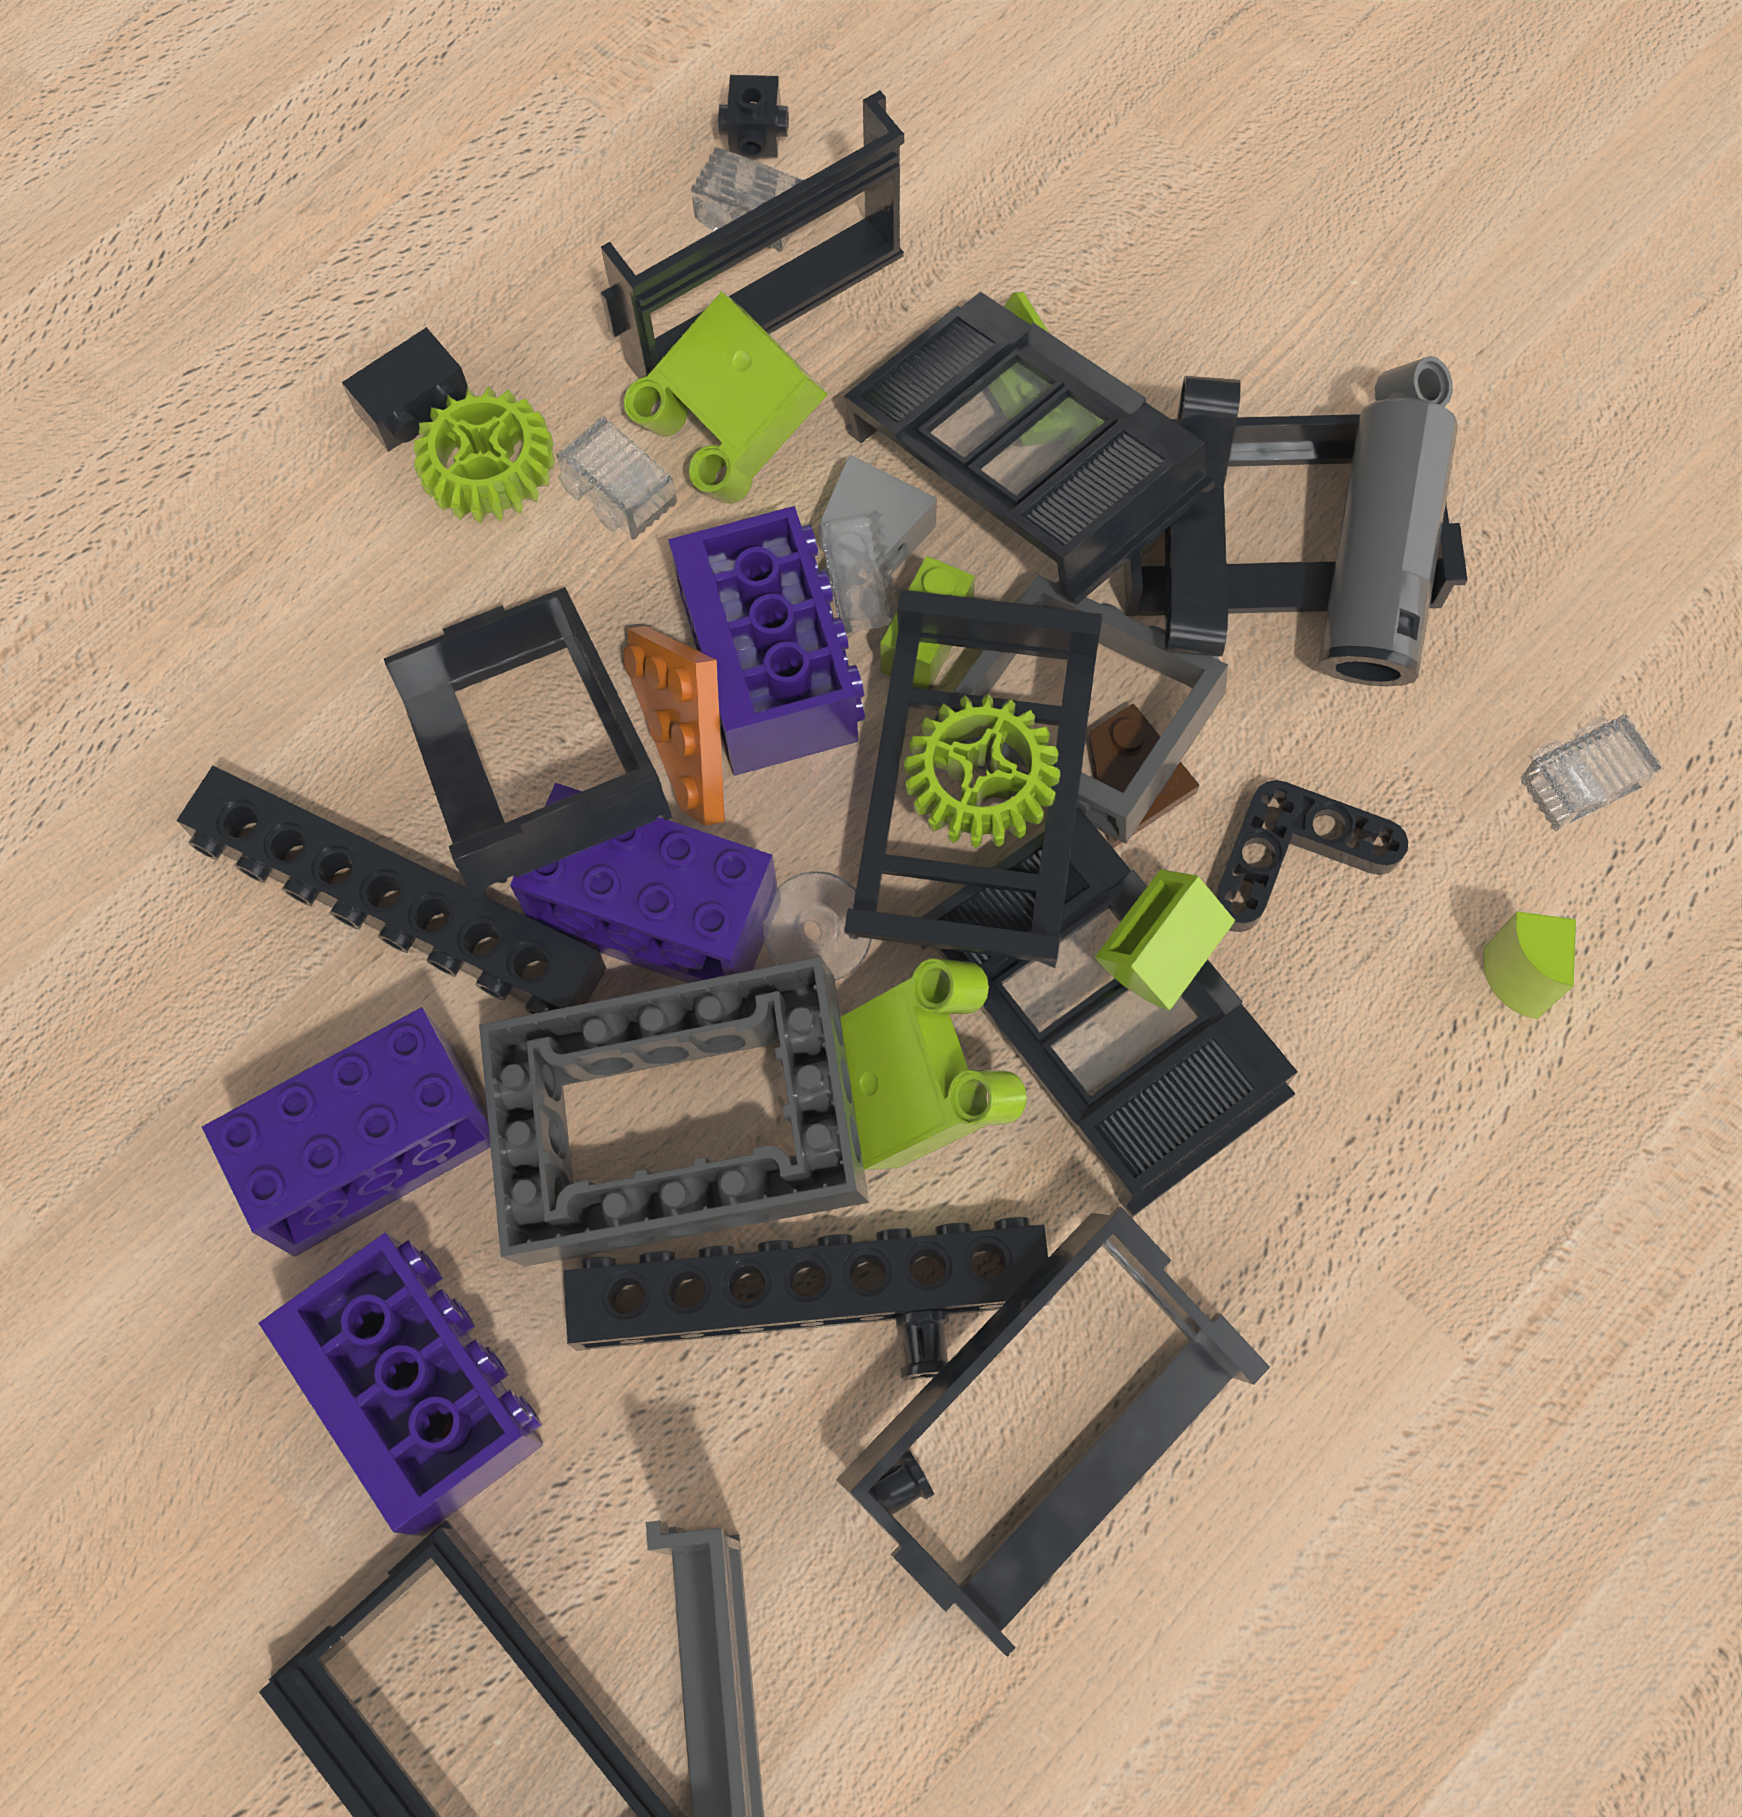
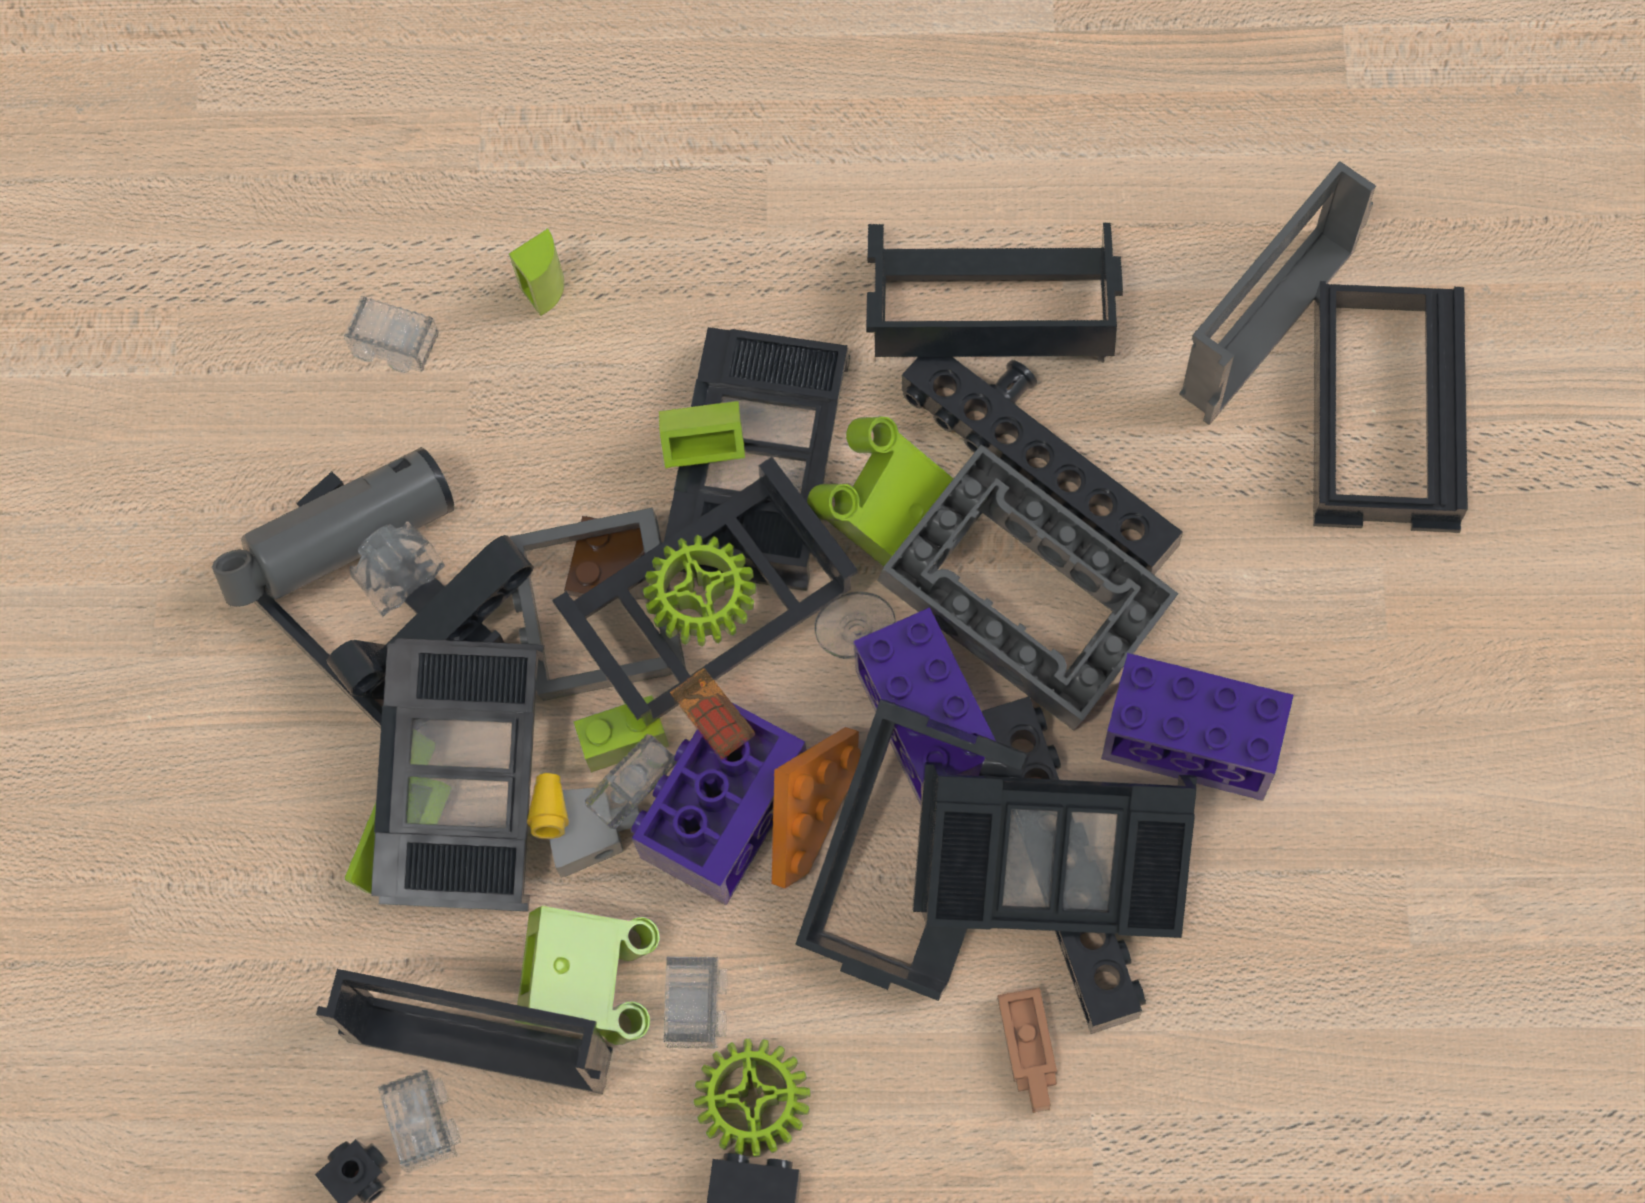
camera: 130 degrees left, 0 degrees up
(273, 715) = (1029, 1045): none -> nougat hinge
(364, 853) = (1053, 854): none -> black piece
(364, 1390) = (1278, 585): dark purple brick -> none
(838, 668) = (712, 713): none -> clear orange tile
(908, 480) = (547, 809): none -> yellow cone
(1297, 828) = (561, 453): black beam -> none
(1300, 556) = (394, 565): none -> clear slope

